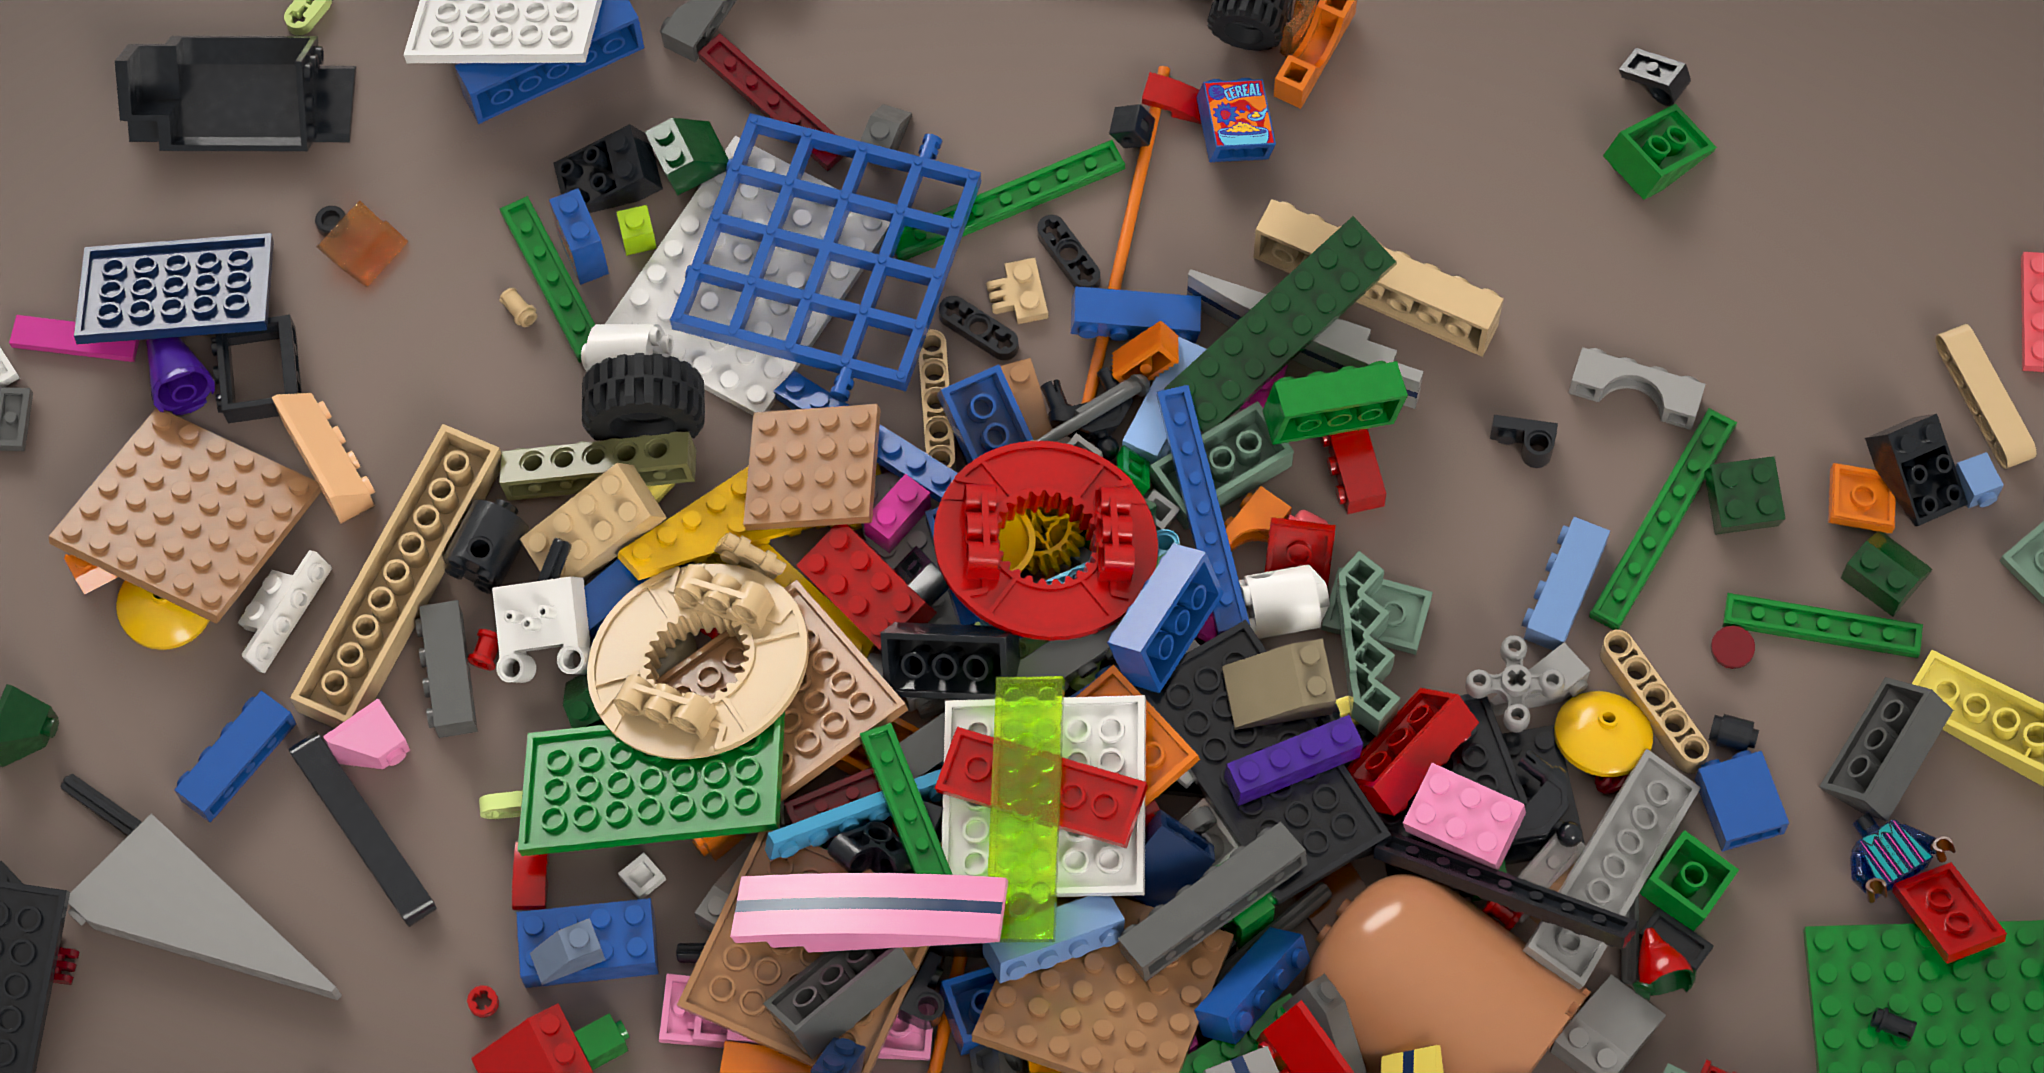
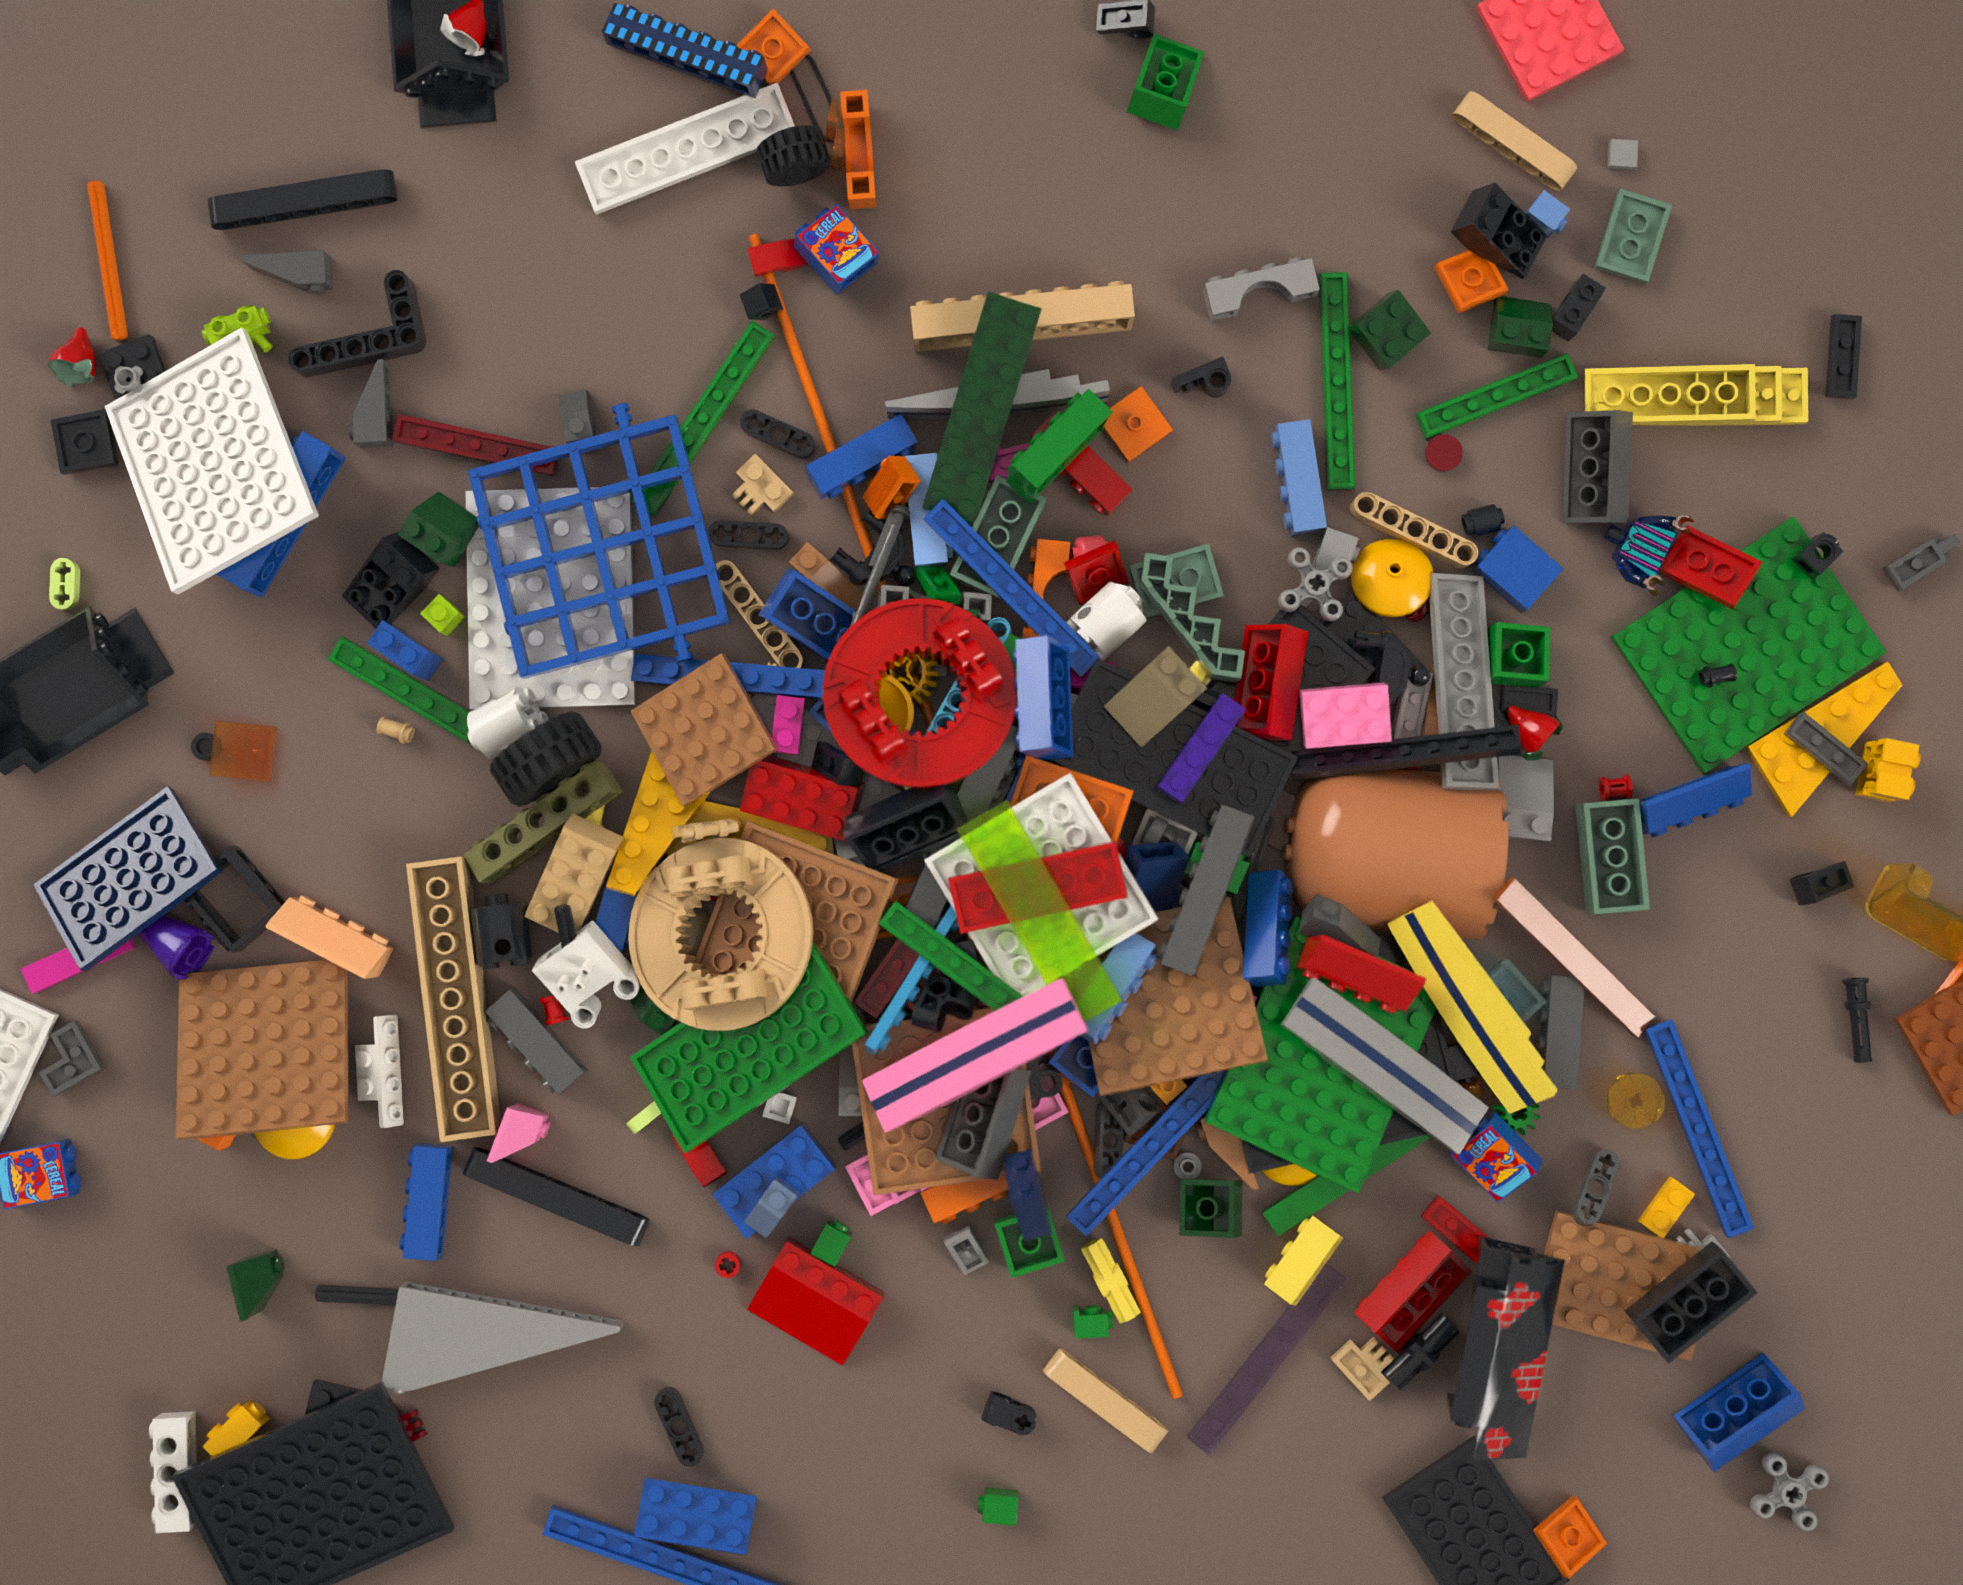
camera: 35 degrees left, 20 degrees up
(1429, 443) = (1136, 424): none -> orange plate
(1955, 584) = (1576, 307): none -> black brick

